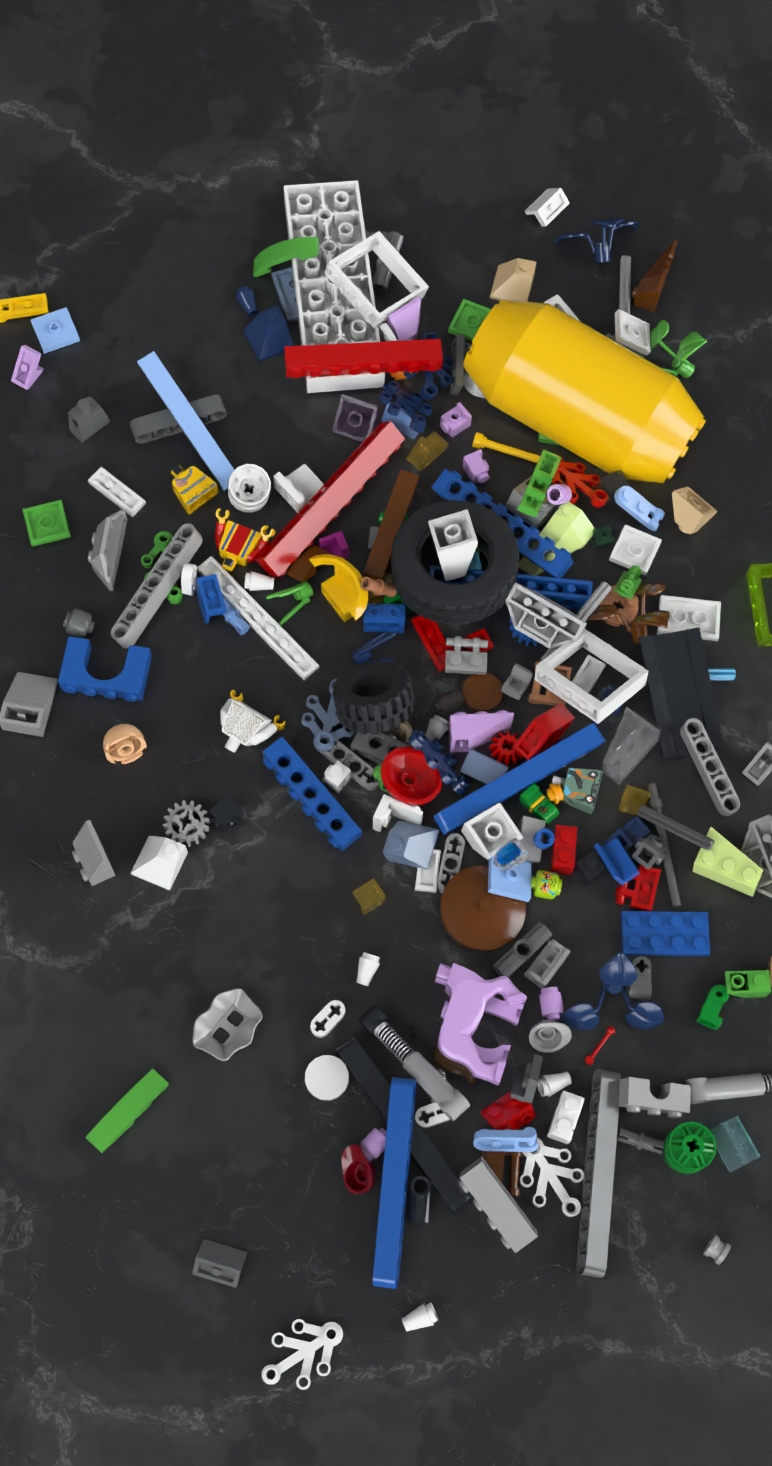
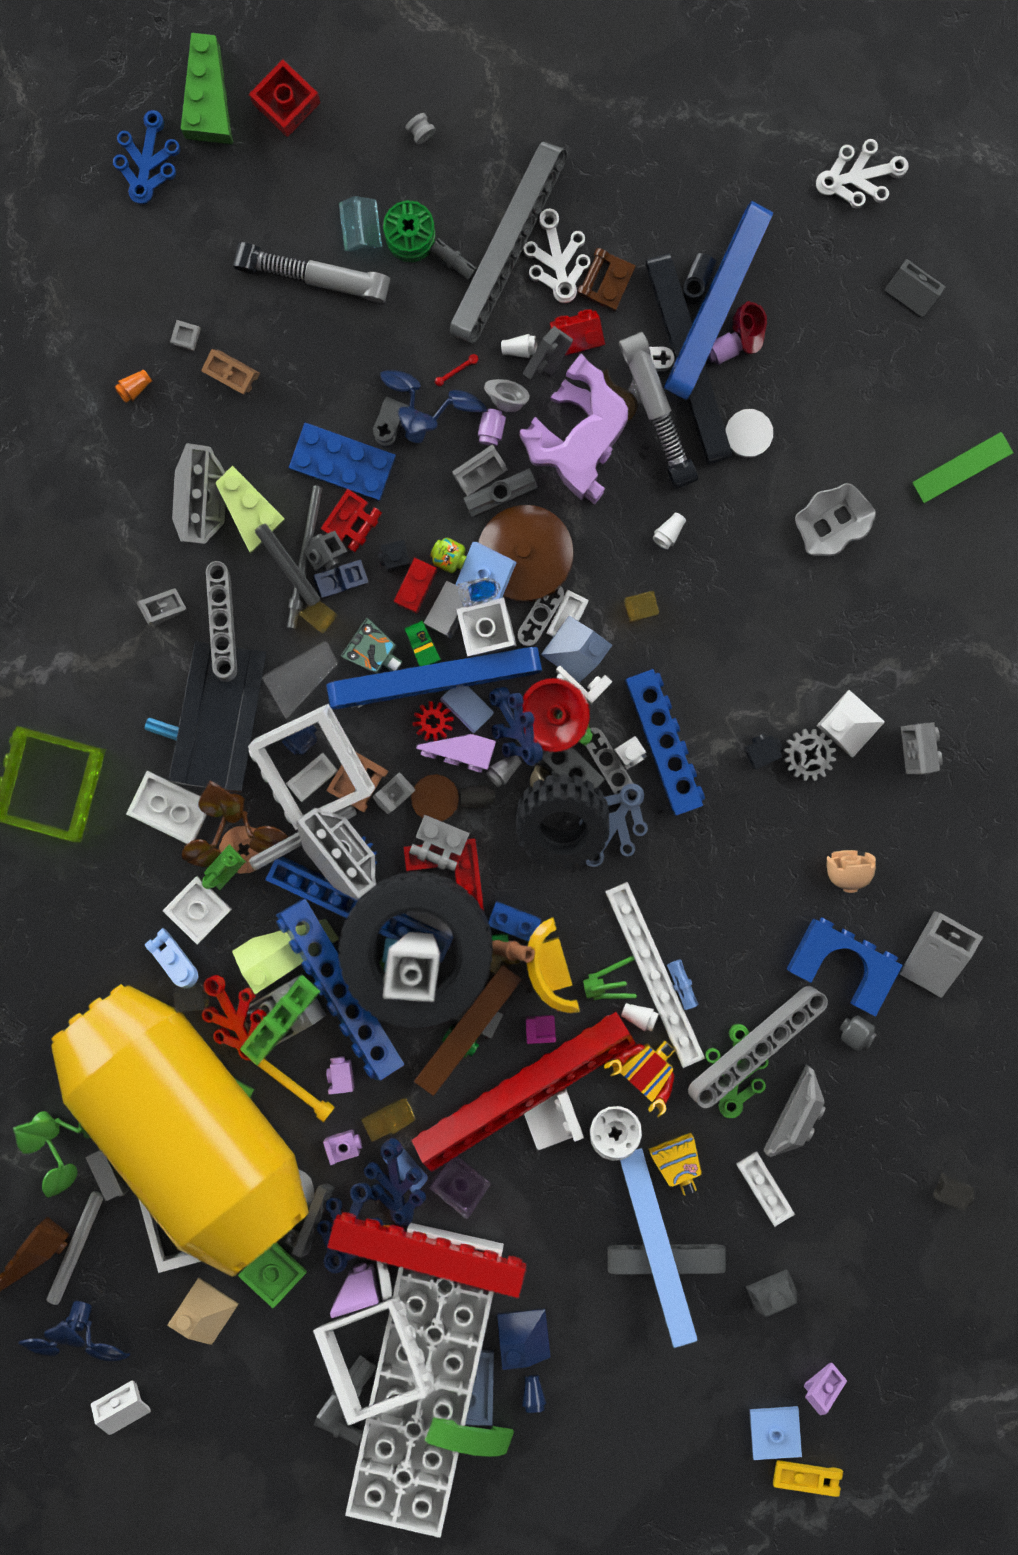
camera: 165 degrees left, 20 degrees up
(46, 523) = (858, 1173): bright green plate -> none
(188, 579) = (719, 1042): white beam -> none
(209, 596) = (701, 1013): blue panel -> none
(245, 724) = (711, 846): white torso -> none
(303, 568) = (570, 1024): reddish brown slope -> none
(331, 1022) = (730, 498): white beam -> none
(362, 653) = (554, 886): dark blue plant -> none
(420, 1317) = (735, 167): white cone -> none
(498, 1205) = (623, 241): light grey brick -> none
(506, 1140) = (592, 302): light blue plate -> none
(538, 835) = (439, 605): blue bush -> none
(544, 731) = (388, 718): red window -> none
(555, 793) = (402, 649): light orange plate -> none
(559, 494) = (263, 997): lavender brick -> none
(565, 1117) = (521, 306): white brick -> none
(600, 540) = (231, 936): clear green plate -> none
(617, 861) = (365, 551): blue panel -> none
(632, 332) = (88, 1191): white tile -> none
(636, 1096) = (406, 285): light grey arch -> none
(690, 510) = (113, 937): tan slope -> none
(711, 1007) = (325, 368): green leg -> none
(748, 983) = (279, 375): bright green slope -> none

